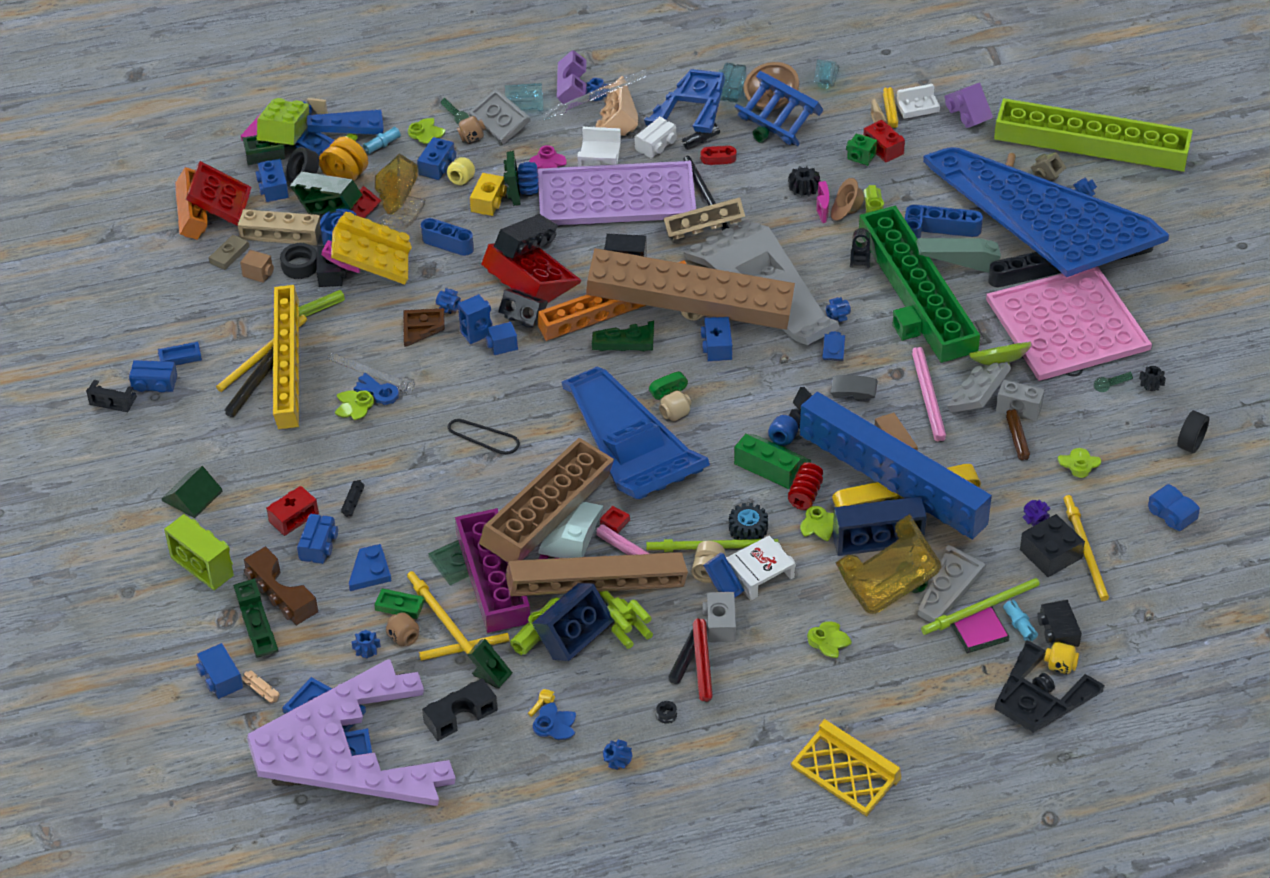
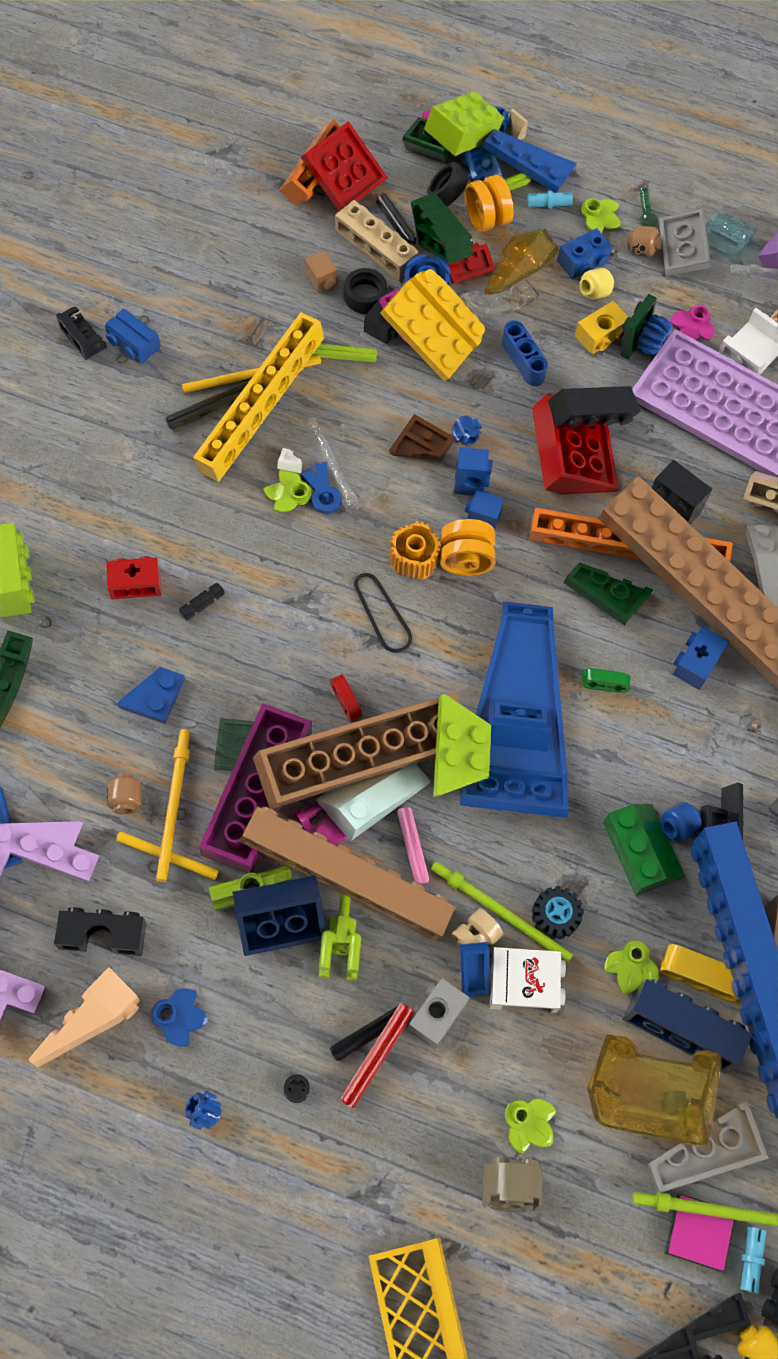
camera: 30 degrees right, 20 degrees up
(181, 353) = (178, 326): blue tile -> none
(193, 492) = (66, 493): dark green slope -> none
(228, 252) = (311, 238): dark tan plate -> none
(270, 205) = (395, 218): none -> black axle
(272, 180) = (411, 181): blue brick -> none
(295, 602) = (55, 630): reddish brown arch -> none
(317, 538) = (130, 627): blue brick -> none
(339, 387) = (289, 462): none -> white tile
(366, 644) = (70, 785): blue gear -> none
(399, 602) = (145, 760): green plate -> none
(476, 385) = (414, 551): none -> light orange brick
(489, 664) = (167, 901): dark green slope -> none
(499, 750) = (103, 1007): none -> light nougat wedge
(501, 490) = (346, 698): none -> red beam
(512, 360) = (467, 547): none -> light orange wheel
(523, 304) = (530, 486): black brick -> none
(545, 696) = (194, 978): yellow hand -> none
(608, 463) = (460, 747): none -> lime wing
(615, 519) = (426, 809): red plate -> none
(675, 406) = (593, 711): tan head -> none
(805, 486) = (648, 910): red piece -> none
(846, 667) = (512, 1185): none -> dark tan brick

